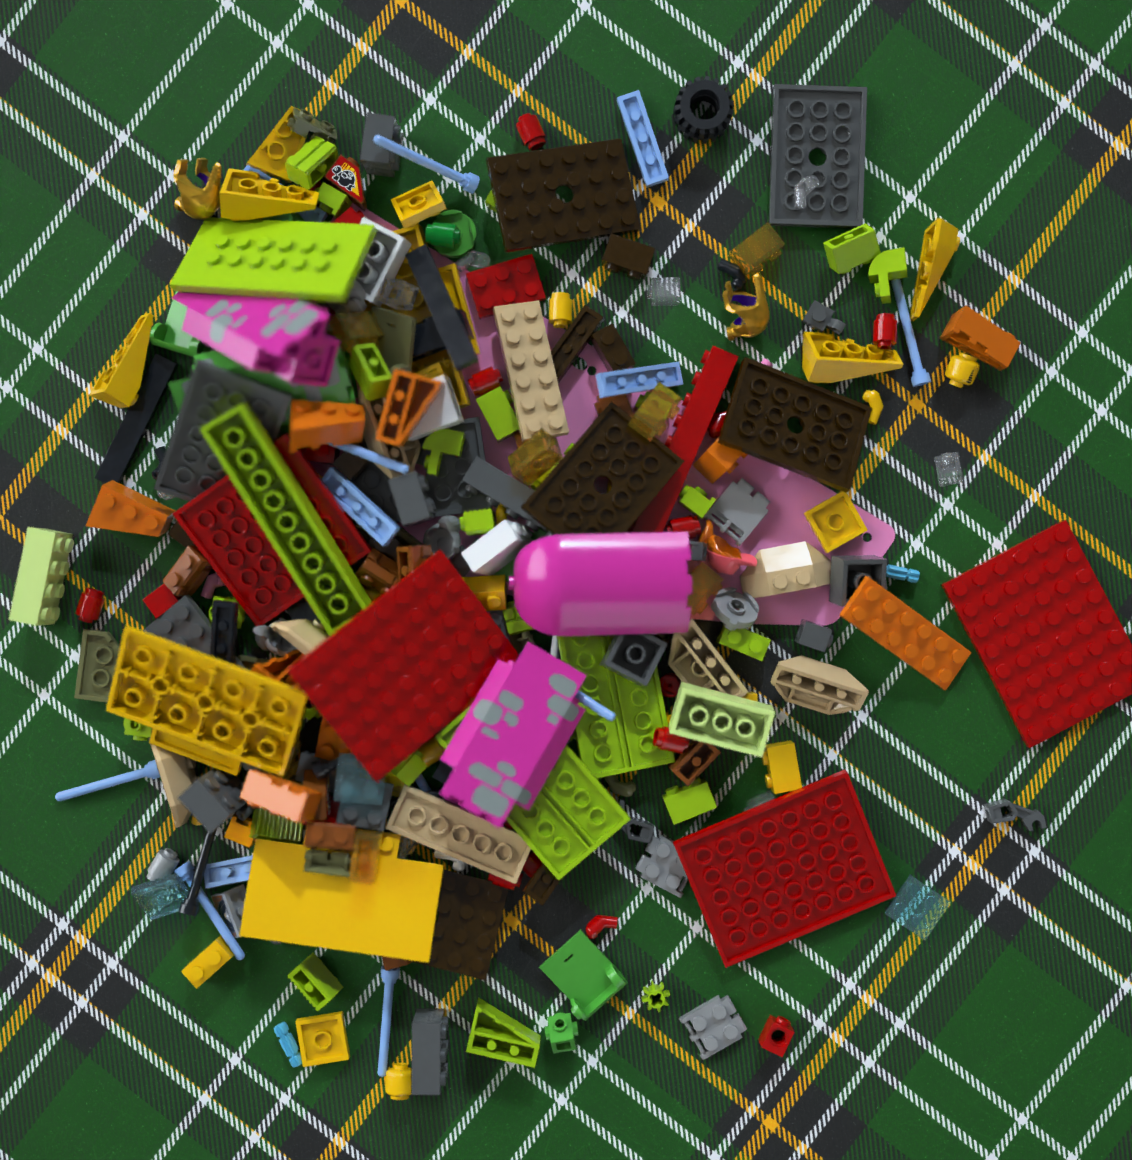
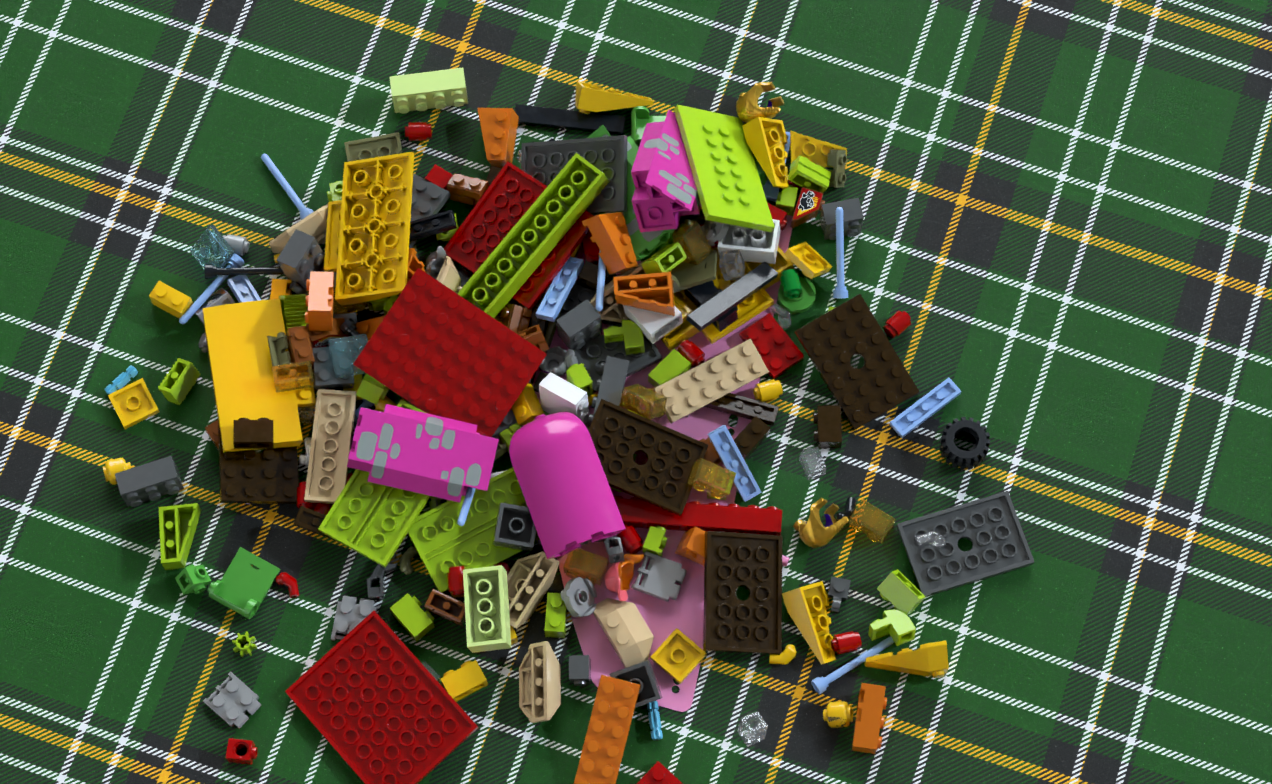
camera: 75 degrees right, 20 degrees down
(213, 581) = (463, 210): bright pink arm -> none
(389, 978) = (197, 437): light blue piece -> none
(422, 924) = (253, 434): none -> dark brown brick

